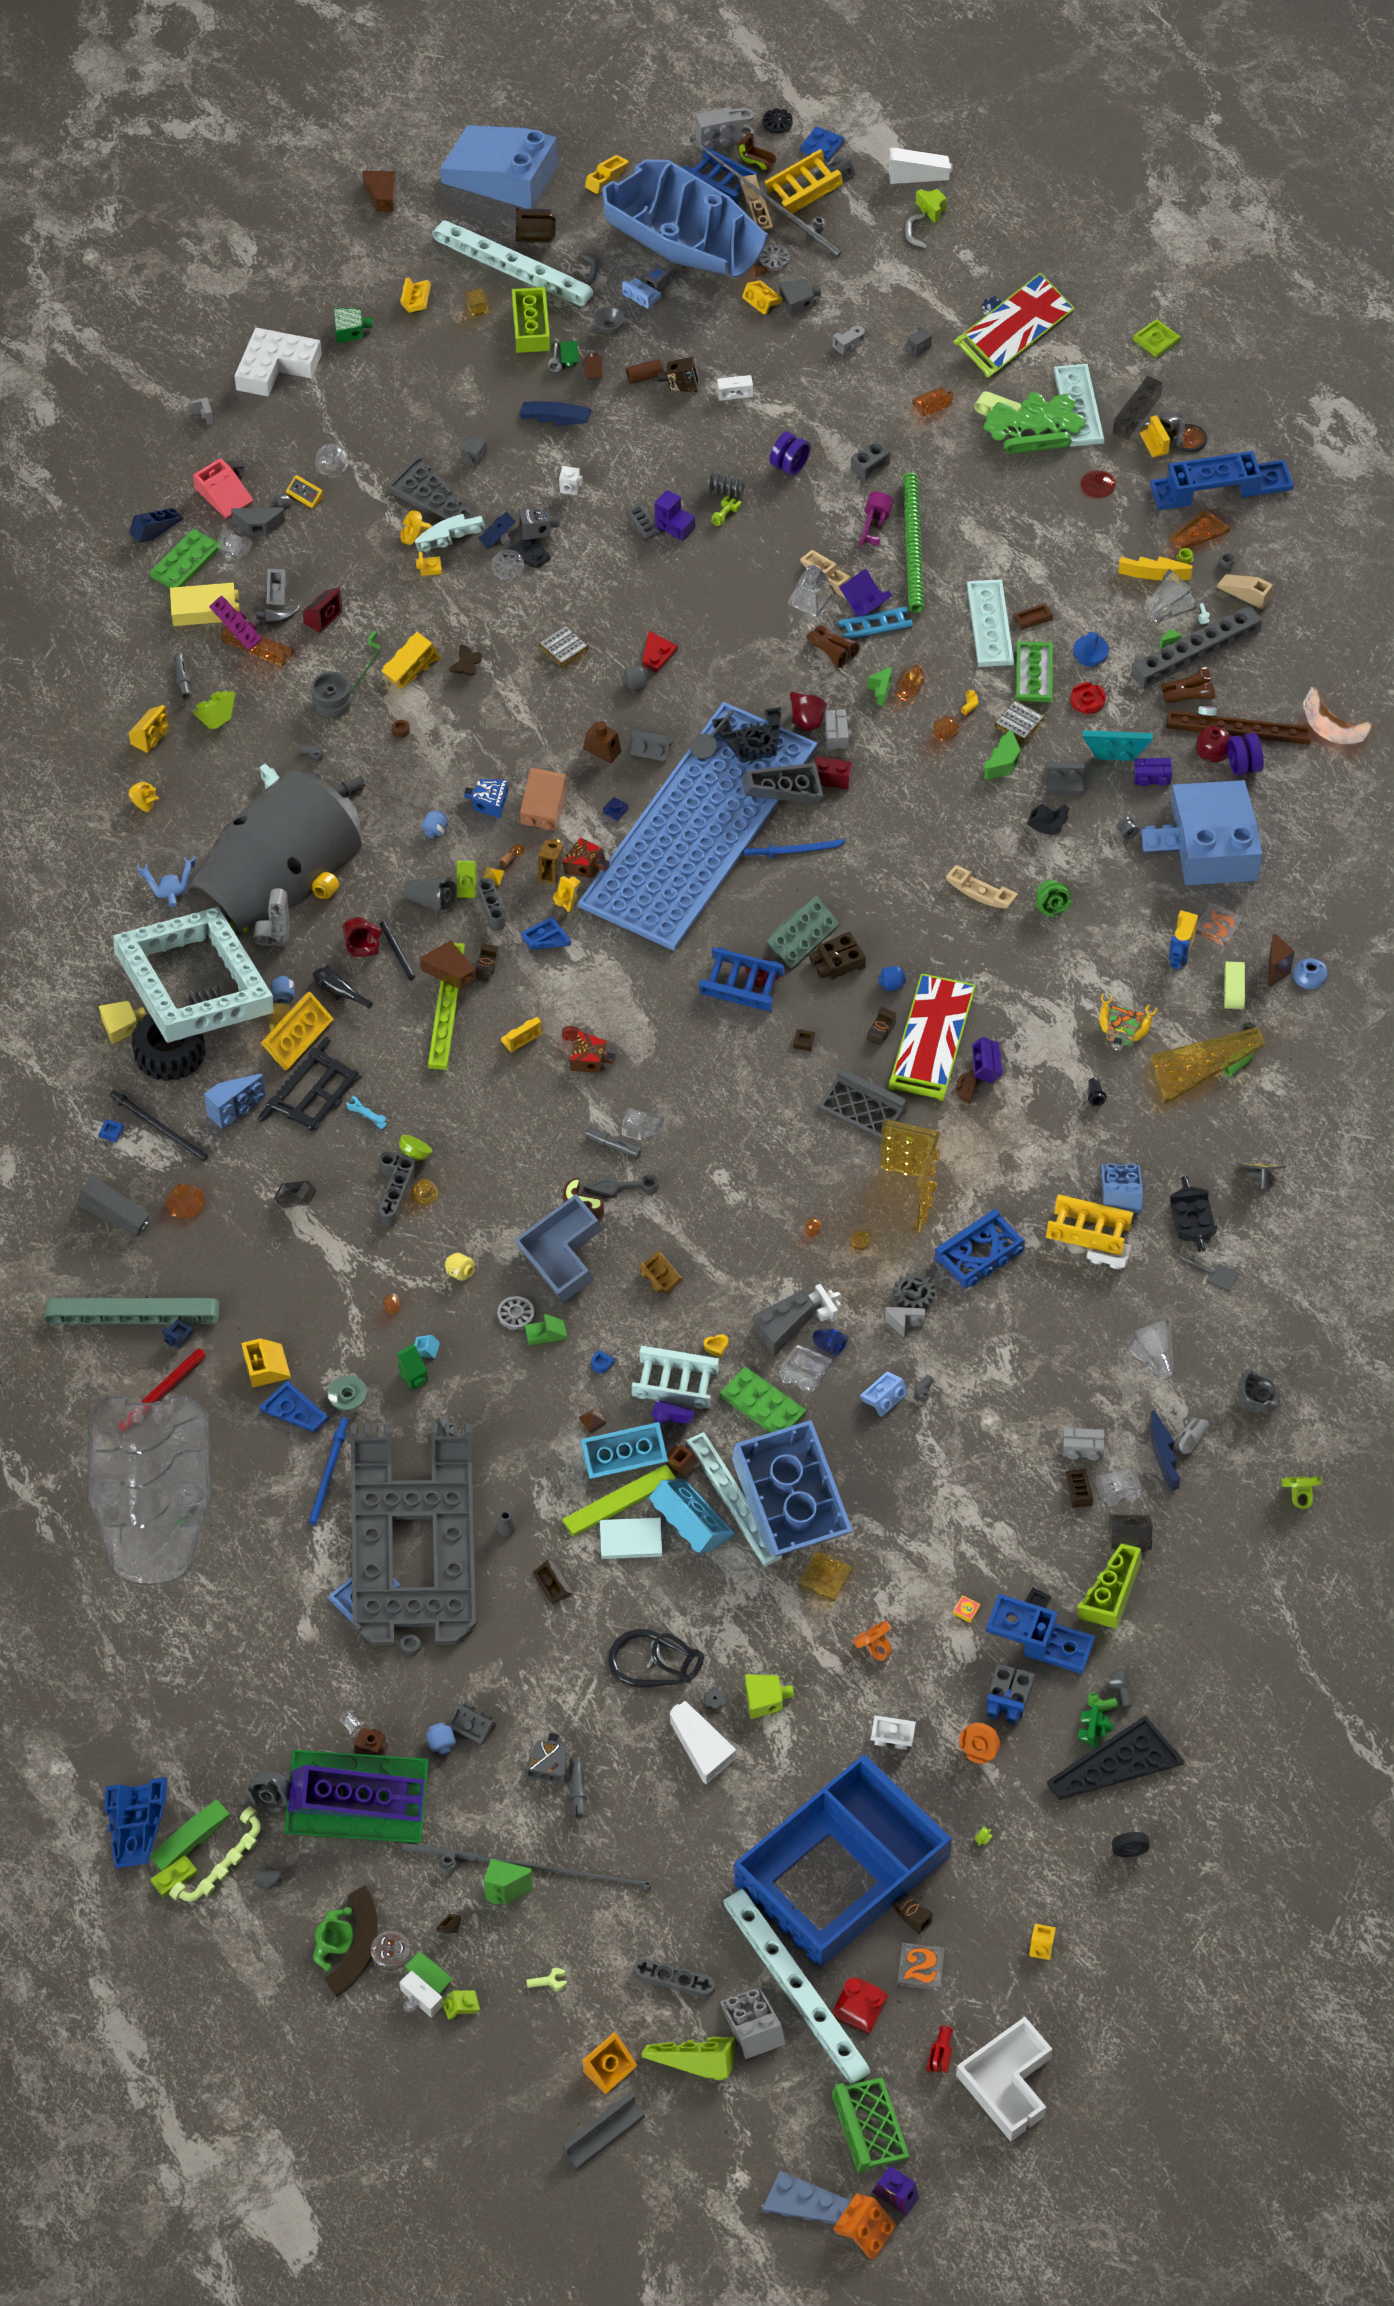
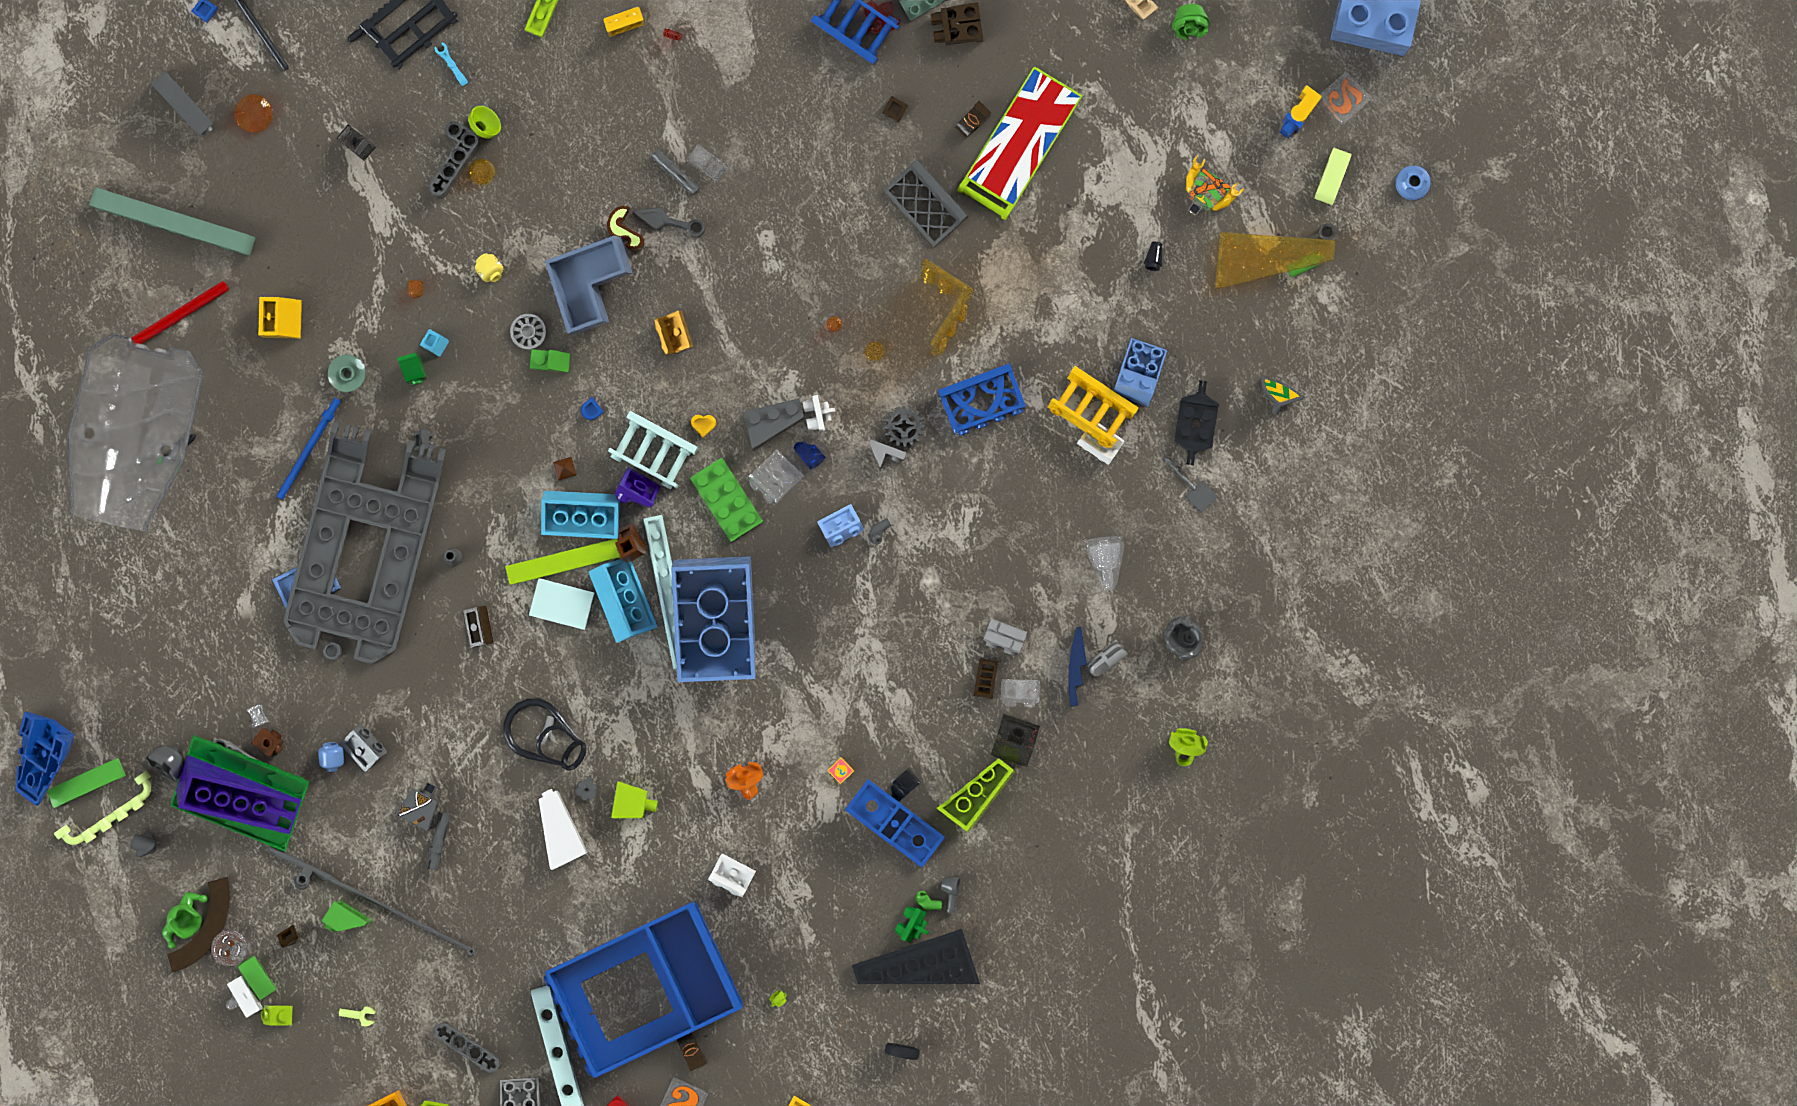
camera: 20 degrees right, 30 degrees up
(177, 1334) = (207, 260): dark blue bracket -> none
(179, 1871) = (64, 814): lime plate -> none
(234, 1098) = (322, 16): medium blue slope -> none
(294, 1408) = (295, 373): blue wing -> none
(590, 1054) = (683, 64): reddish brown torso -> none
(825, 1576) = (724, 700): clear yellow plate -> none
(892, 978) = (1002, 67): blue head -> none
(966, 1086) = (1034, 208): reddish brown tile -> none
(979, 1742) = (803, 912): orange tile -> none
(986, 1060) = (1061, 191): dark purple brick -> none
(1008, 1700) = (848, 875): hips -> none
(1280, 960) = (1385, 165): reddish brown slope -> none

